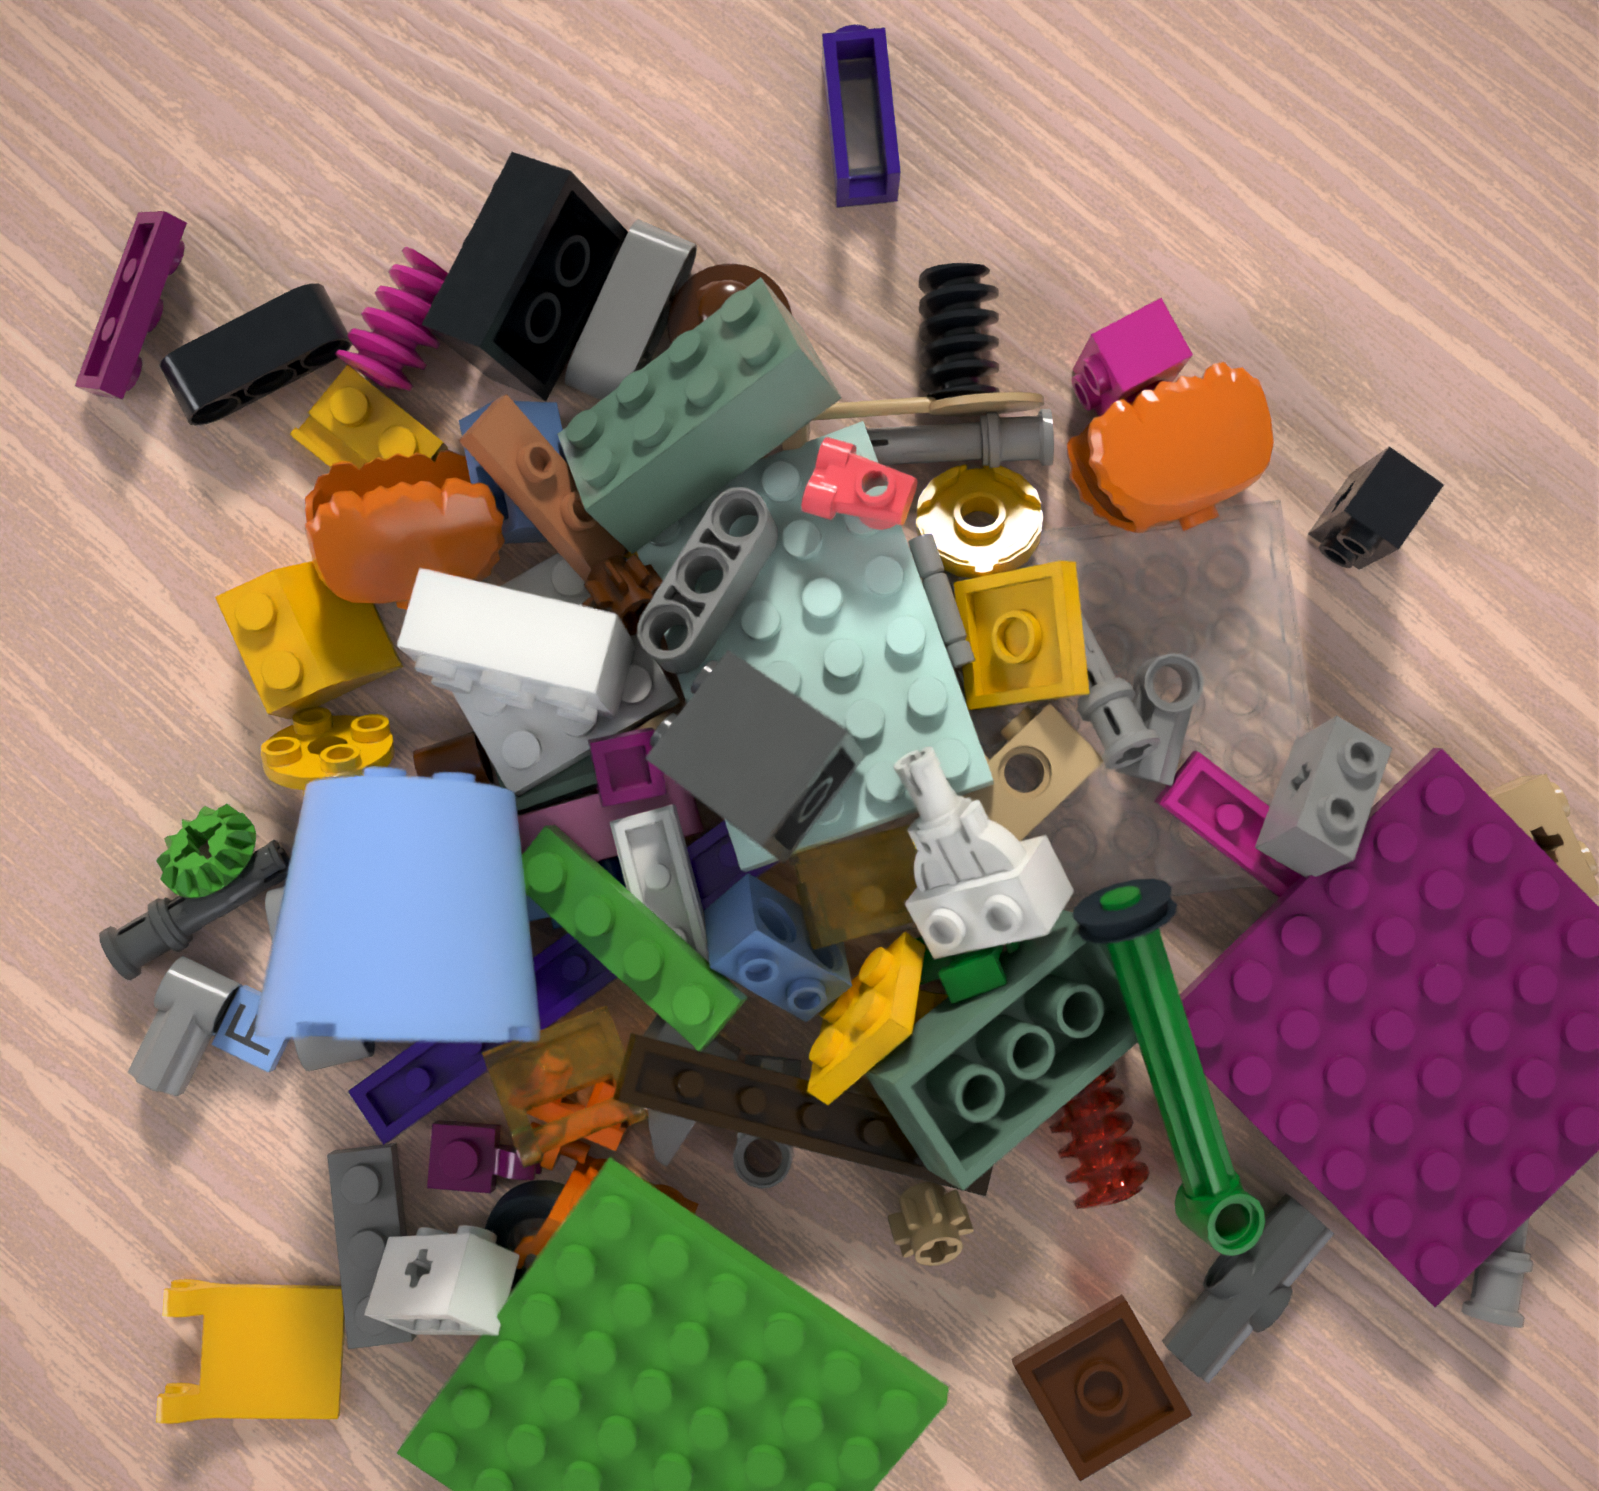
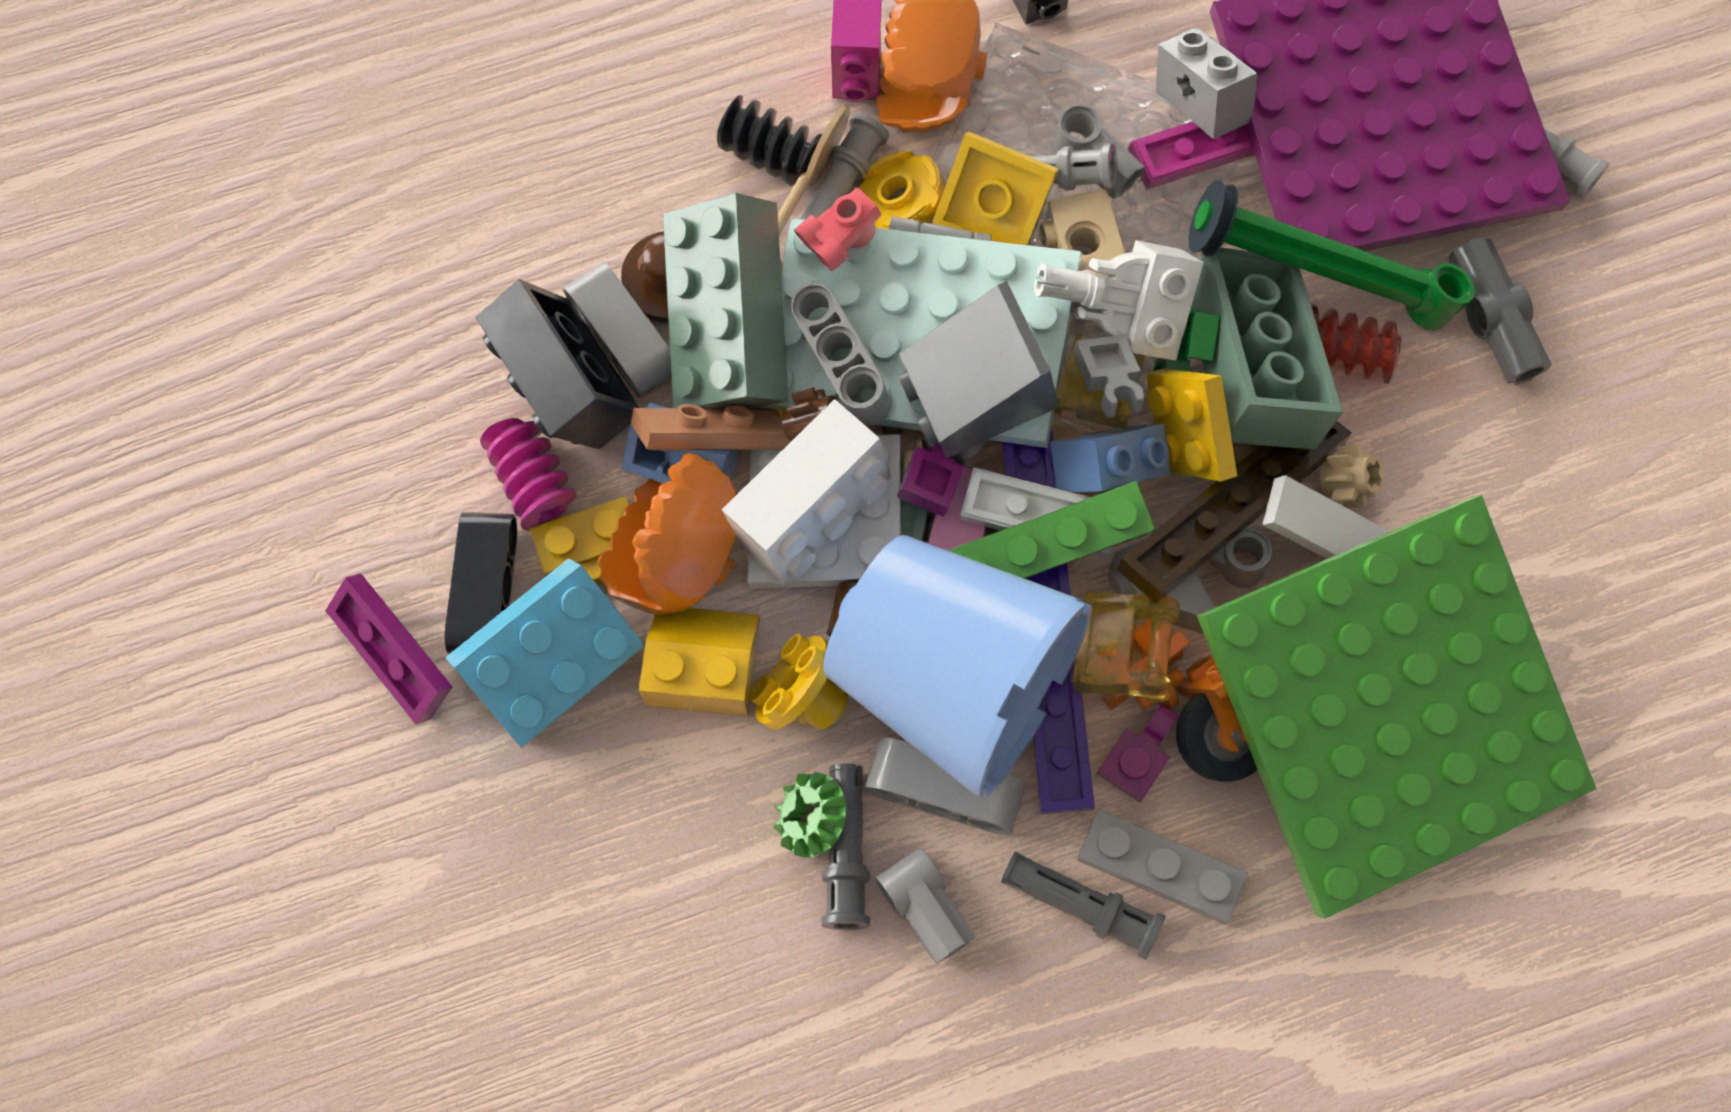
camera: 65 degrees left, 15 degrees down
(202, 470) = (545, 651): none -> medium azure brick
(238, 1033) = (959, 858): light blue tile -> none
(261, 1352) = (1197, 989): yellow flag -> none
(274, 1222) = (1106, 913): none -> dark grey pin
(443, 1282) = (1220, 807): white brick -> none
(842, 1235) = (1316, 520): none -> white tile
(861, 116) = (589, 121): dark purple window -> none
(866, 892) = (1110, 367): none -> light grey plate
(1101, 1387) = (1520, 434): reddish brown plate -> none

